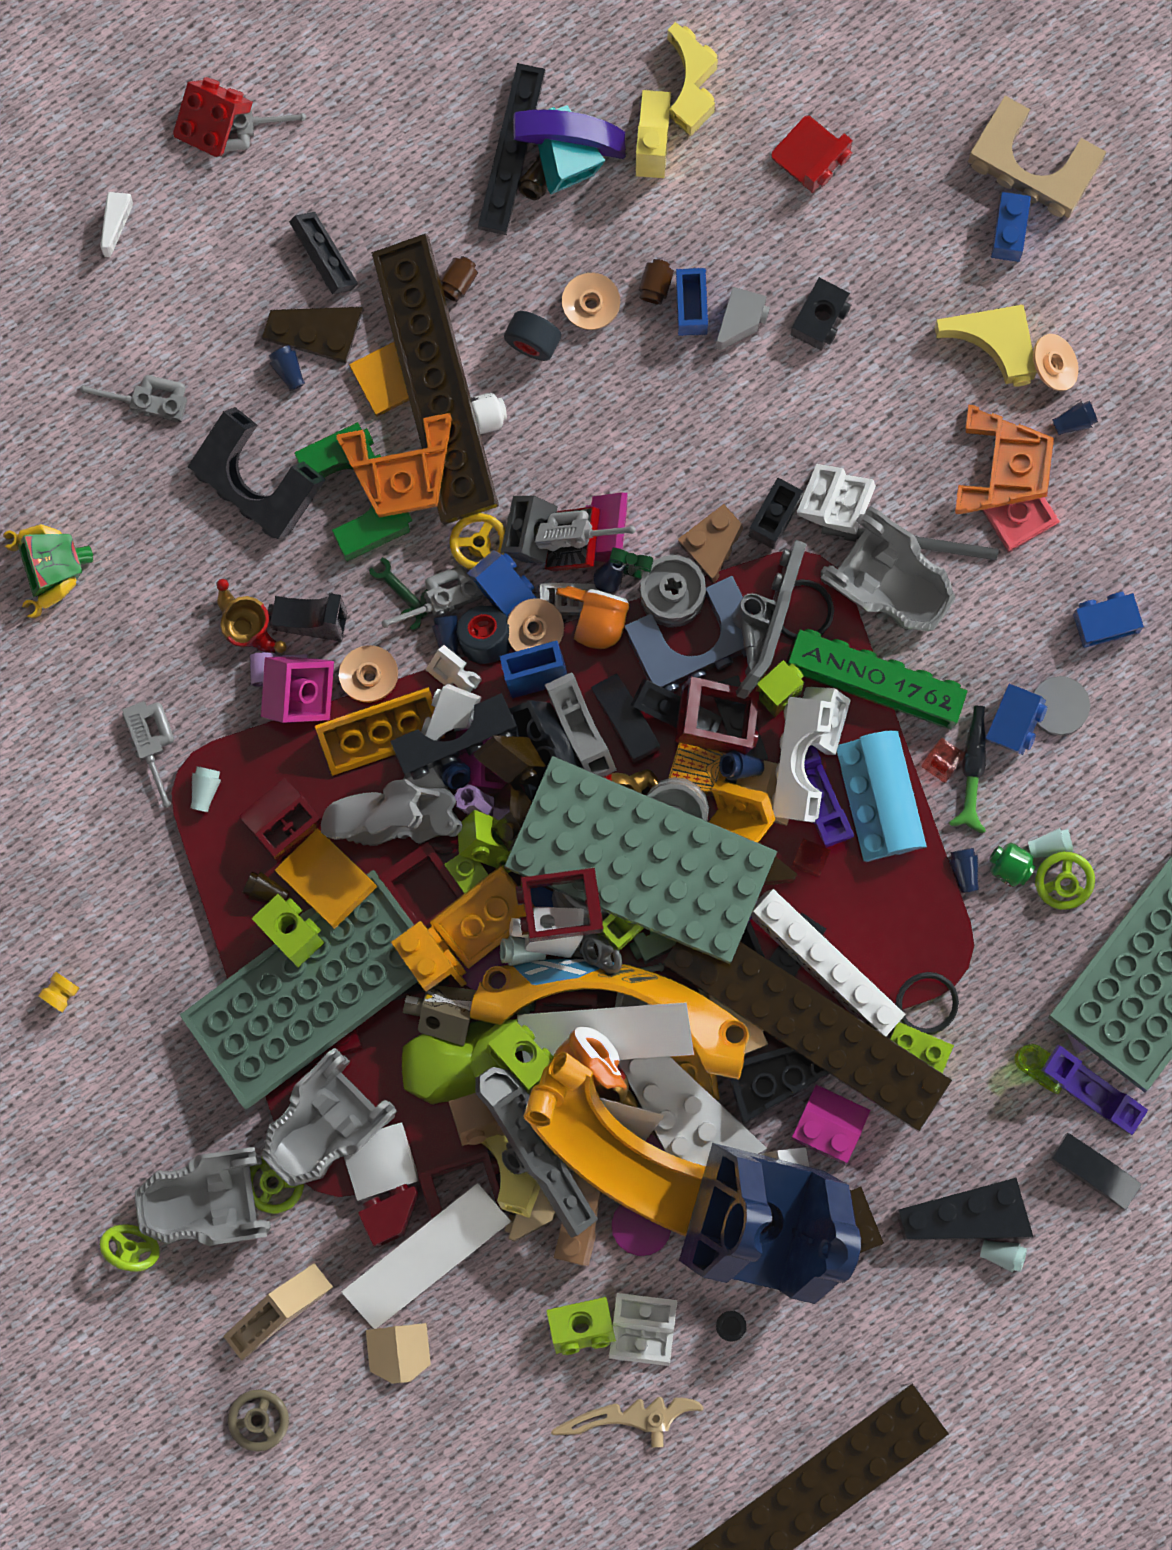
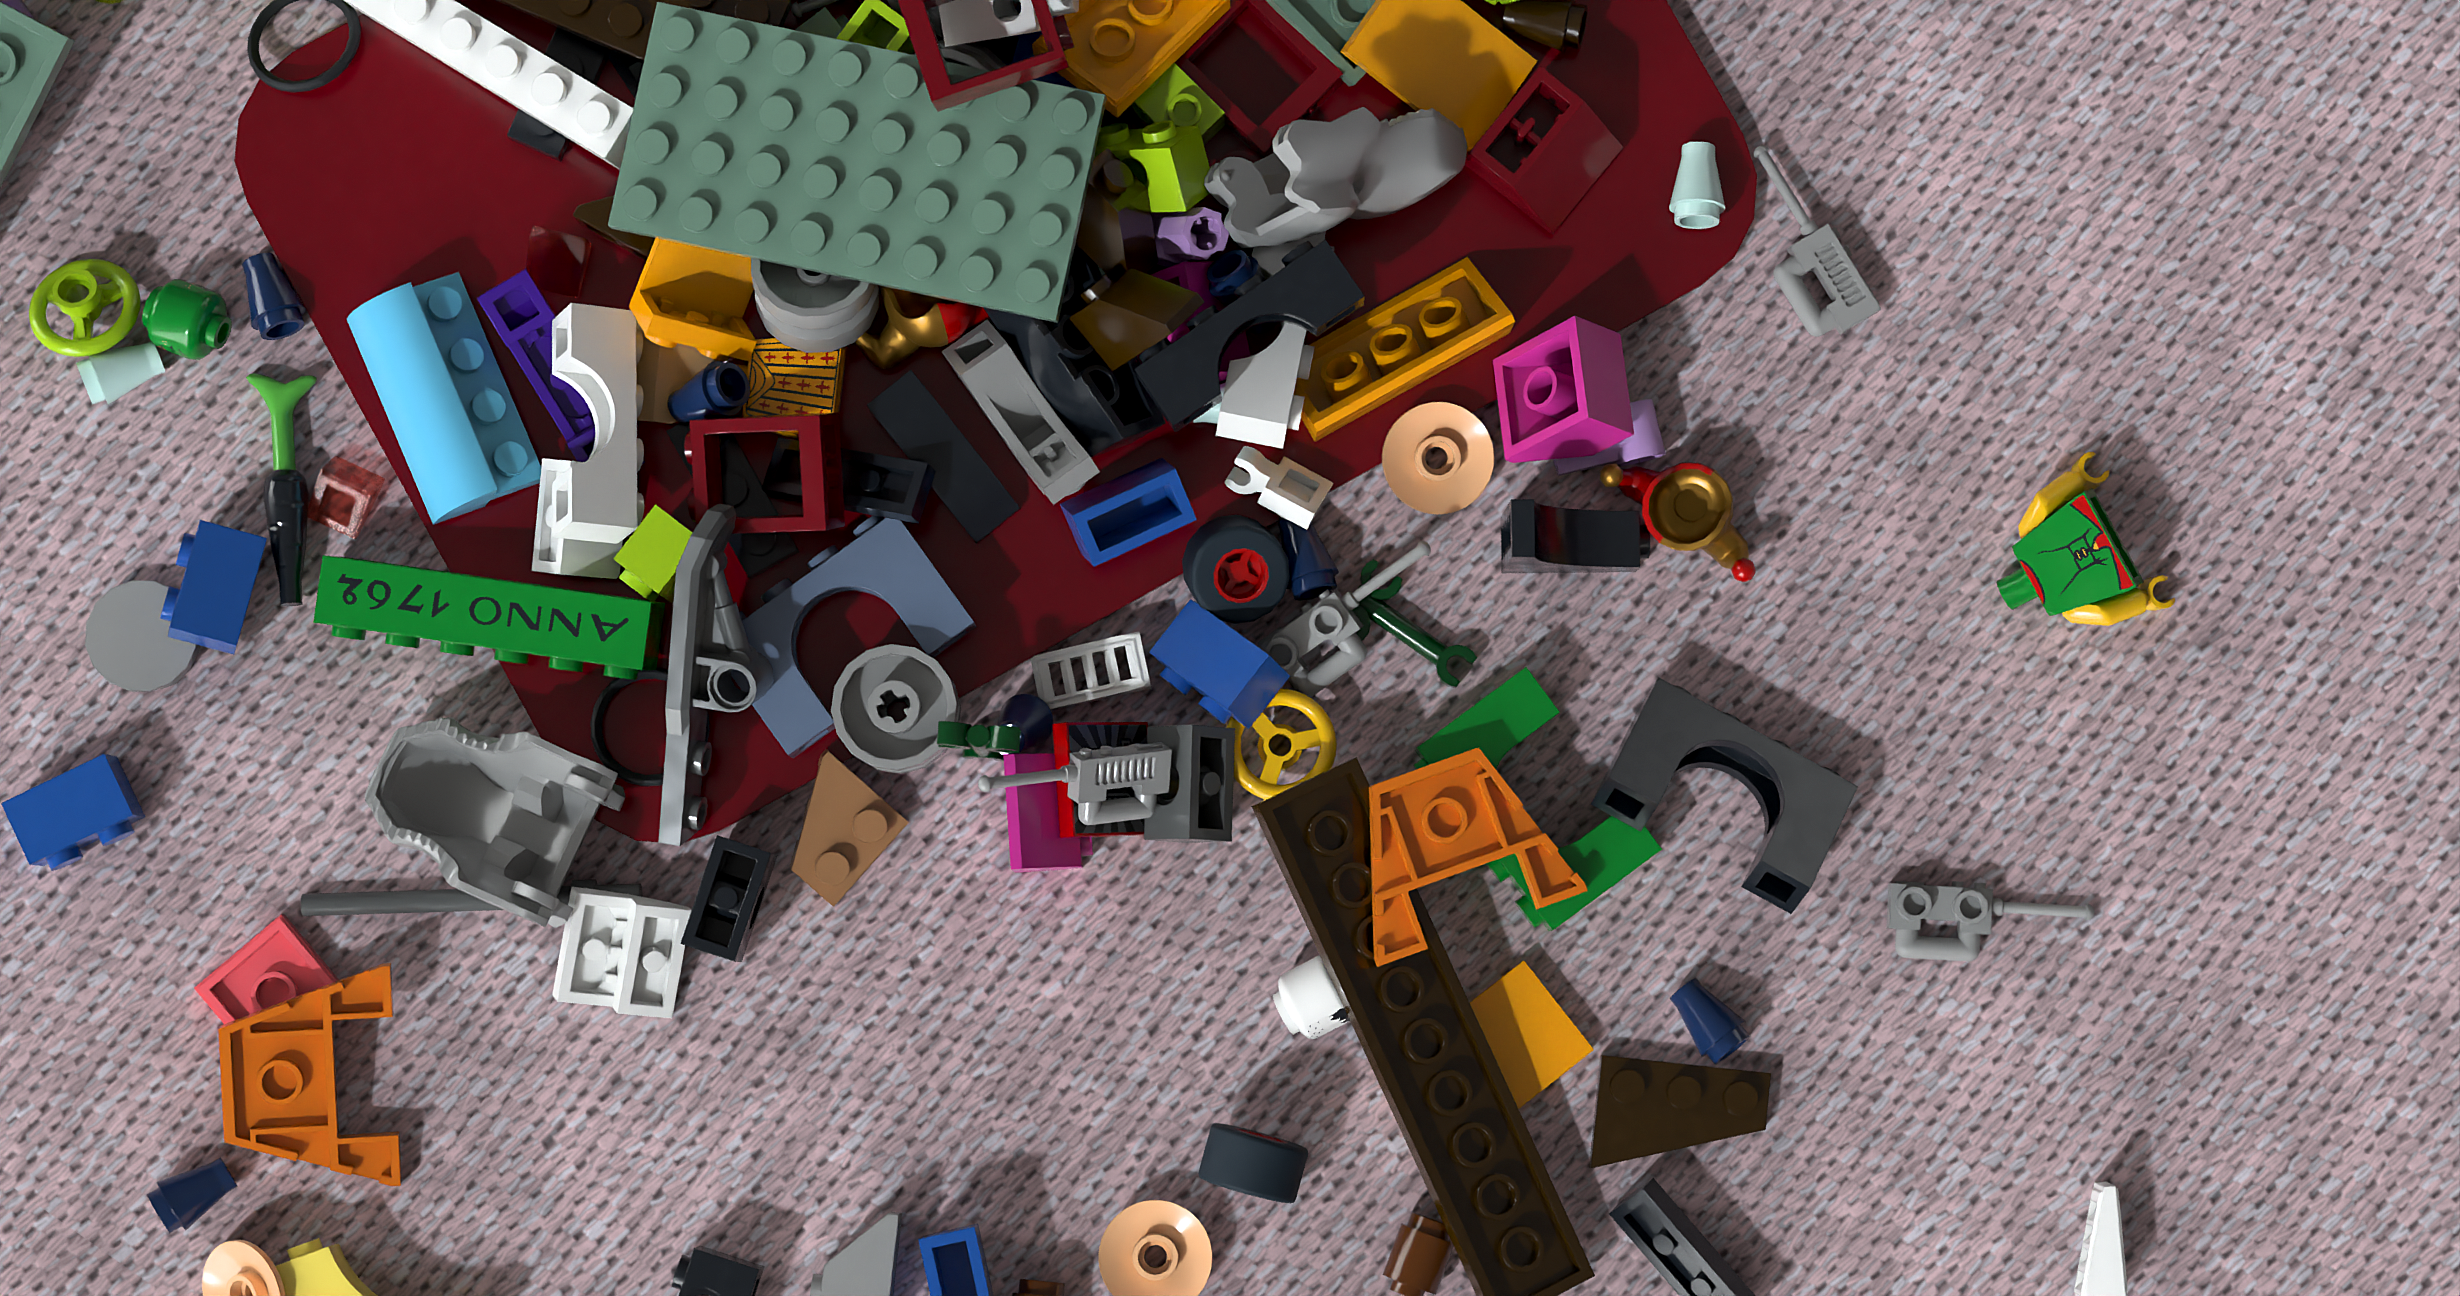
camera: 165 degrees right, 5 degrees up
(547, 619) = (1128, 582): light nougat dish -> none
(601, 617) = (1024, 635): orange piece -> none

